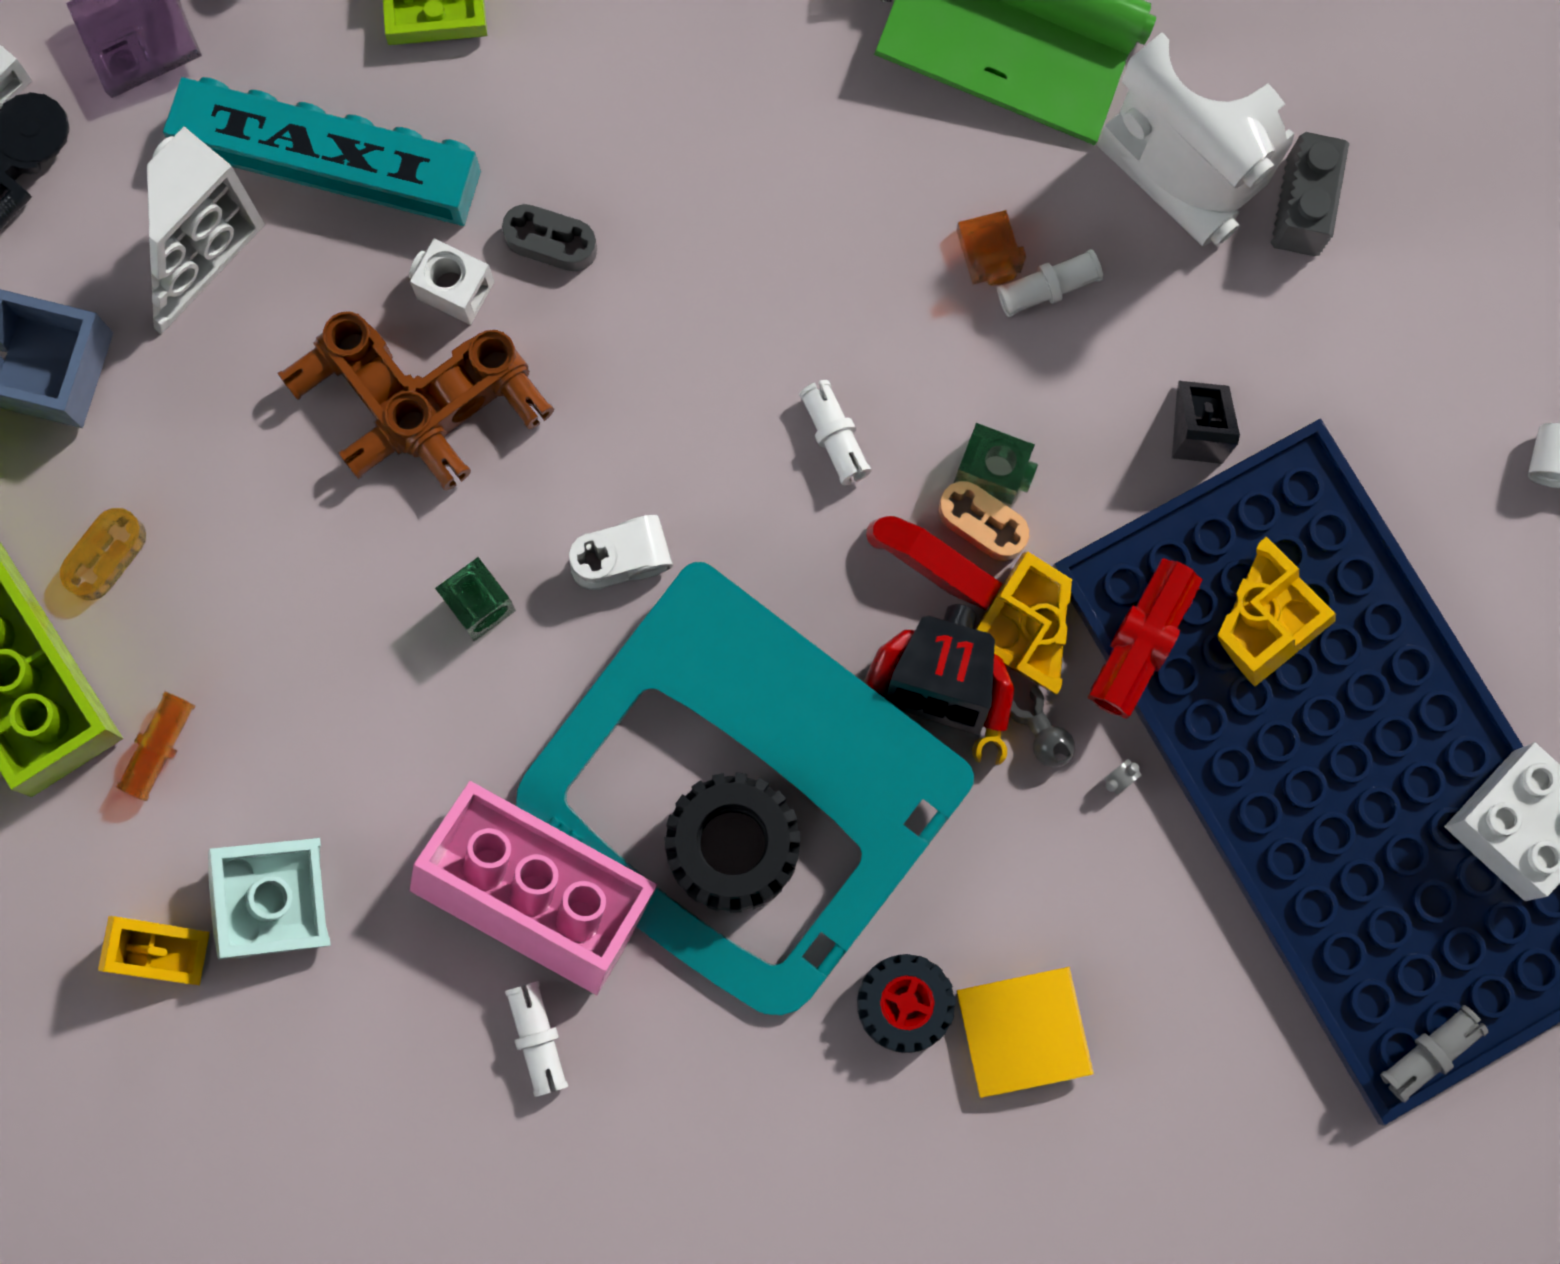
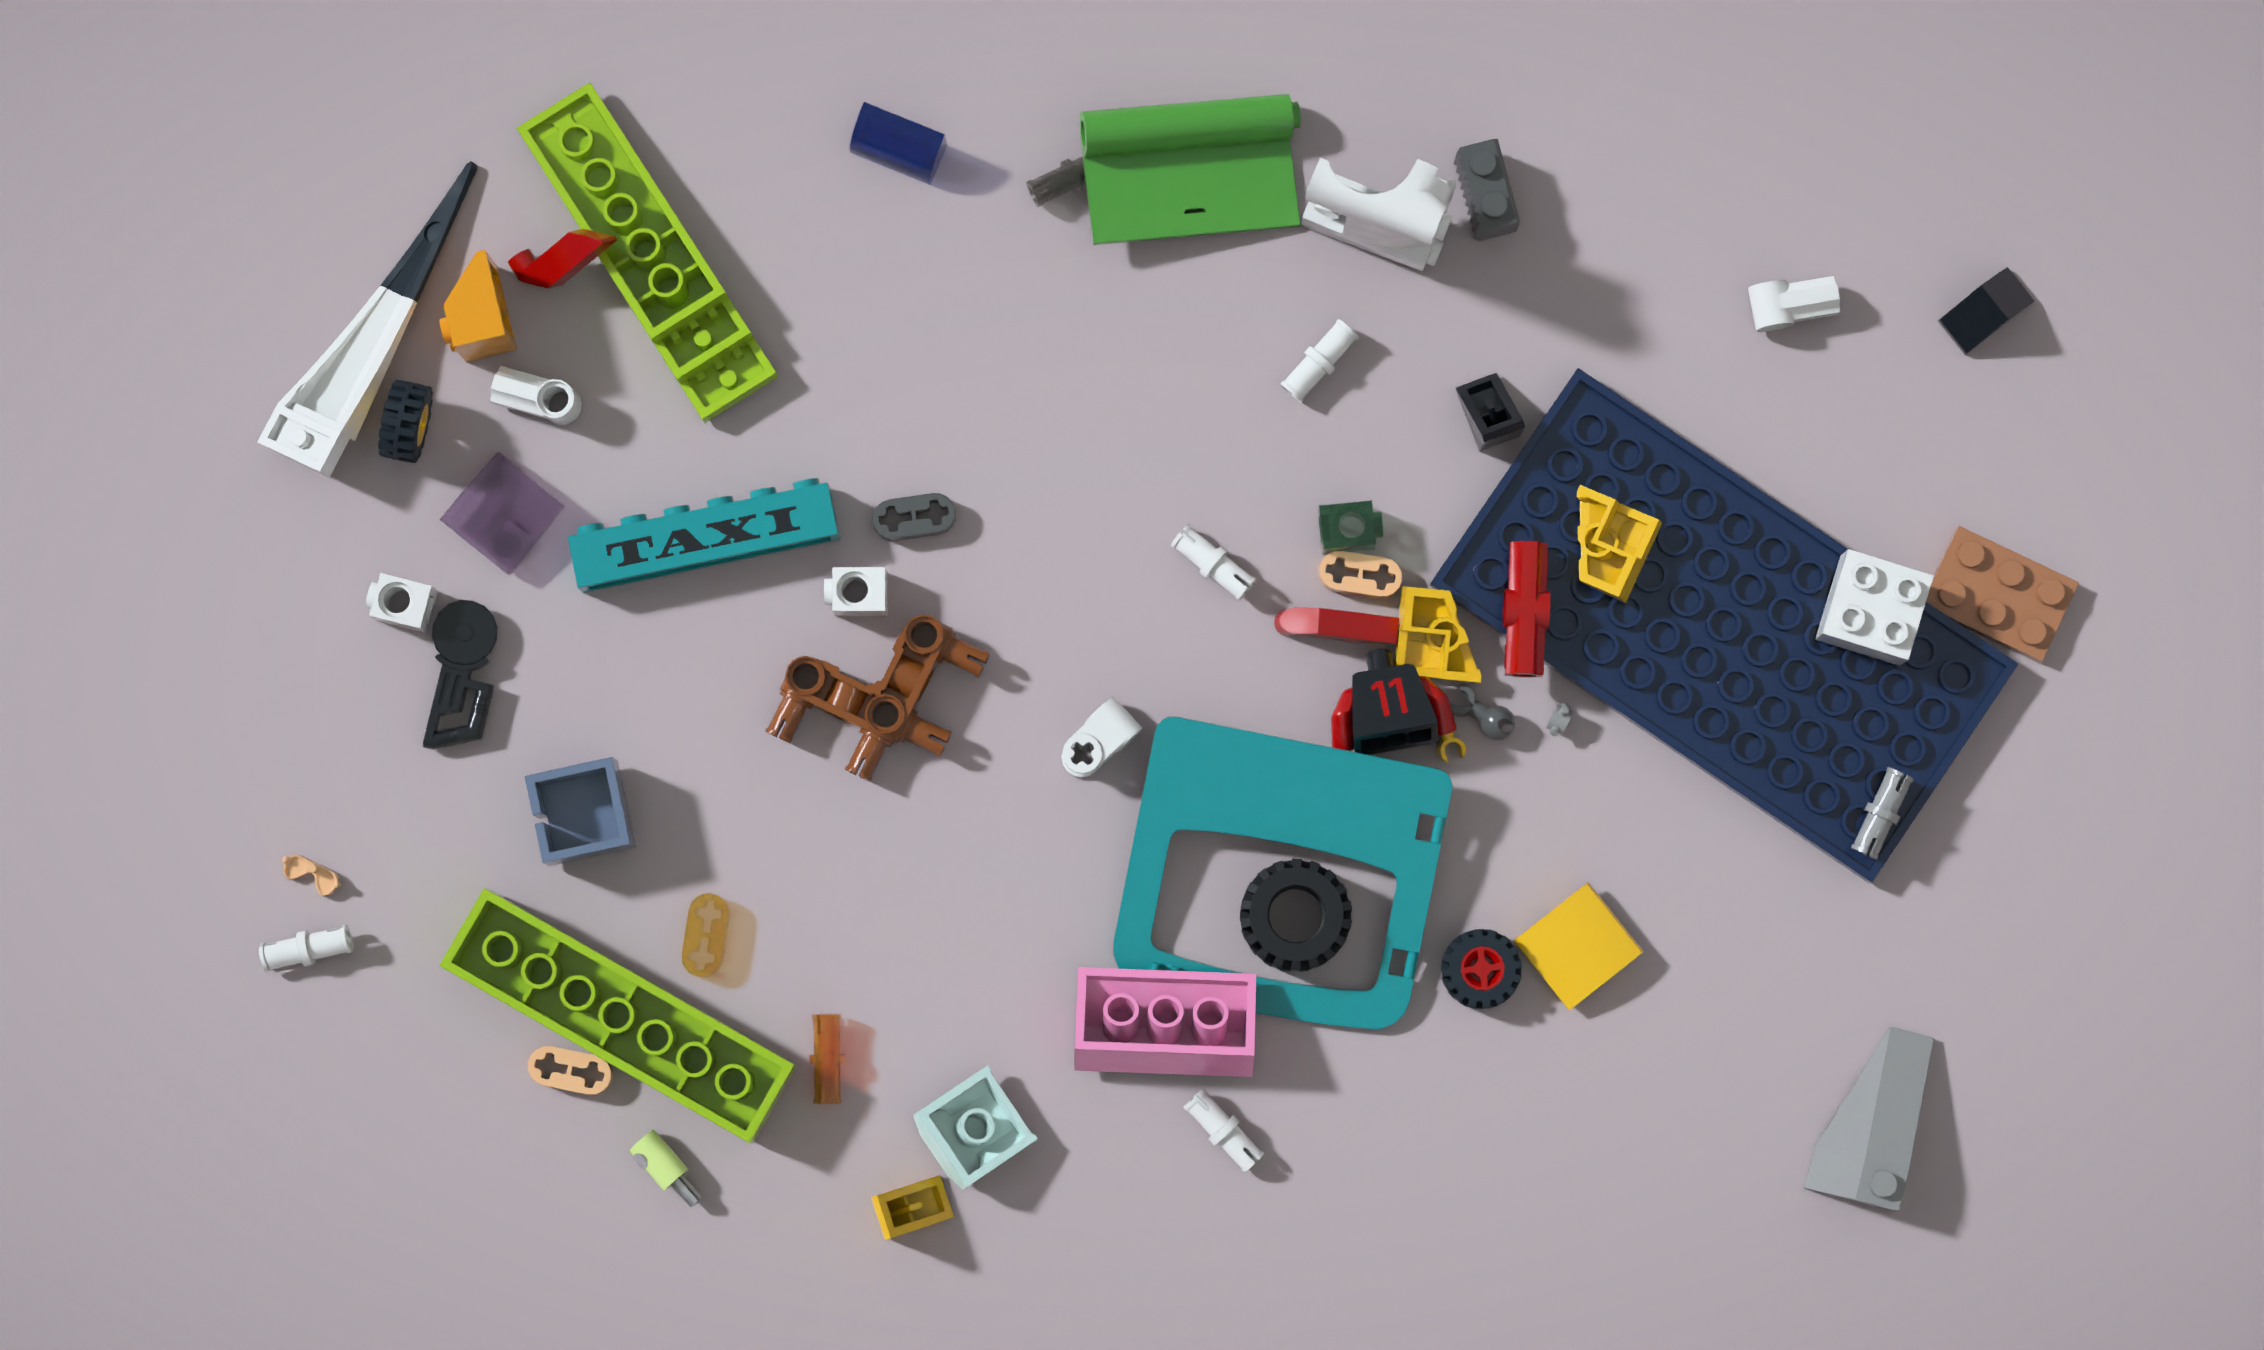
camera: 20 degrees left, 5 degrees up
(195, 222) = (642, 652): white wedge -> none
(476, 599) = (1009, 829): clear green brick -> none
(990, 249) = (1260, 355): clear orange bracket -> none

